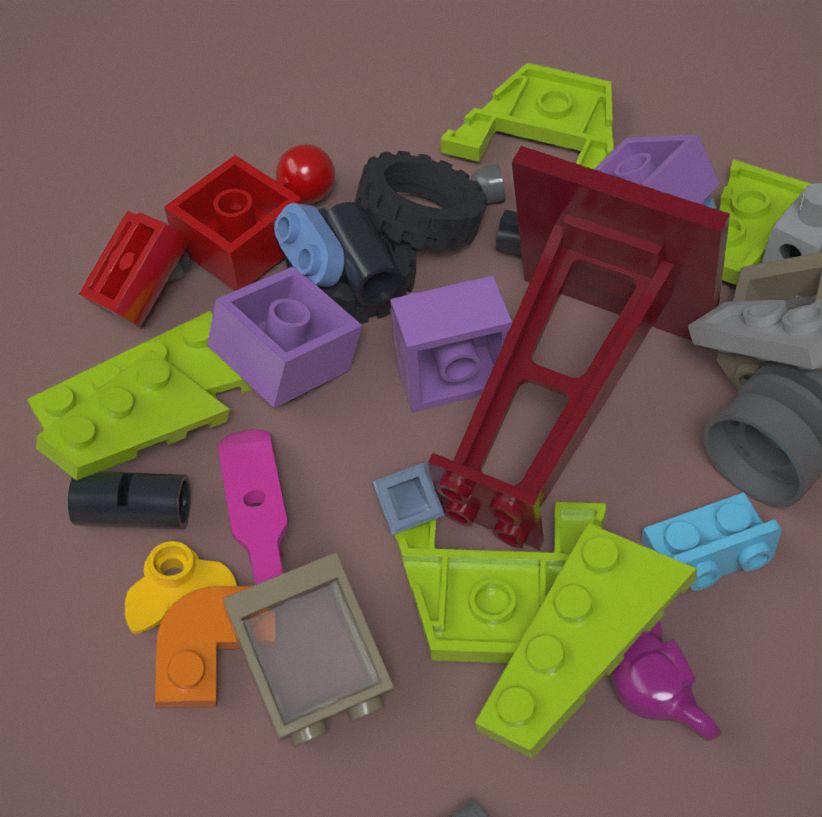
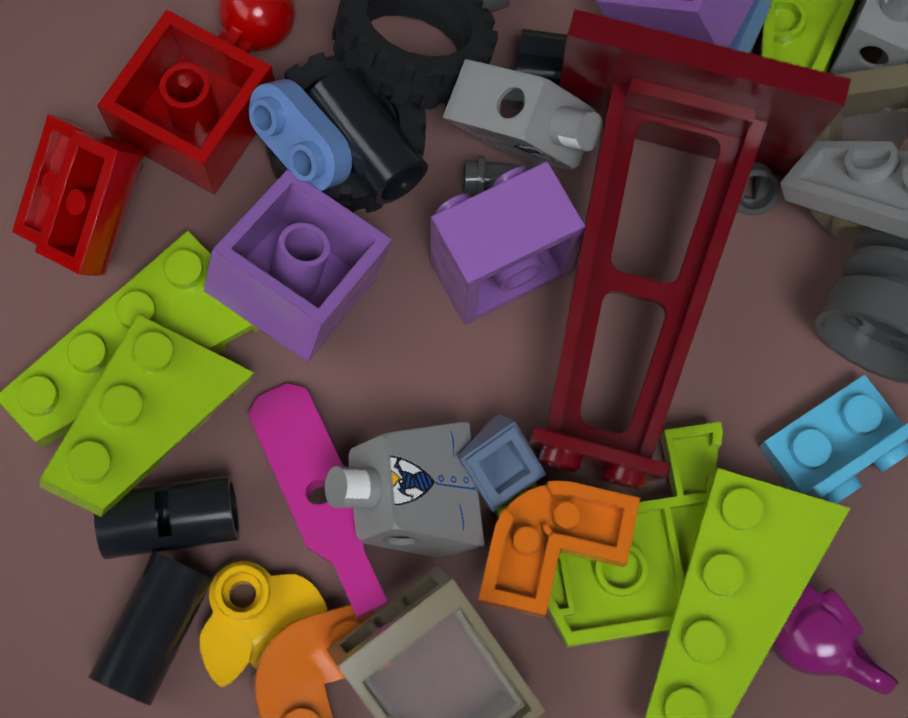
camera: 20 degrees left, 20 degrees up
(90, 576) = (150, 628): none -> black pin
(327, 504) = (411, 491): none -> light grey torso
(442, 545) = (550, 521): none -> orange plate
(484, 245) = (549, 127): none -> light grey torso
(663, 343) = (765, 191): none -> dark grey hinge

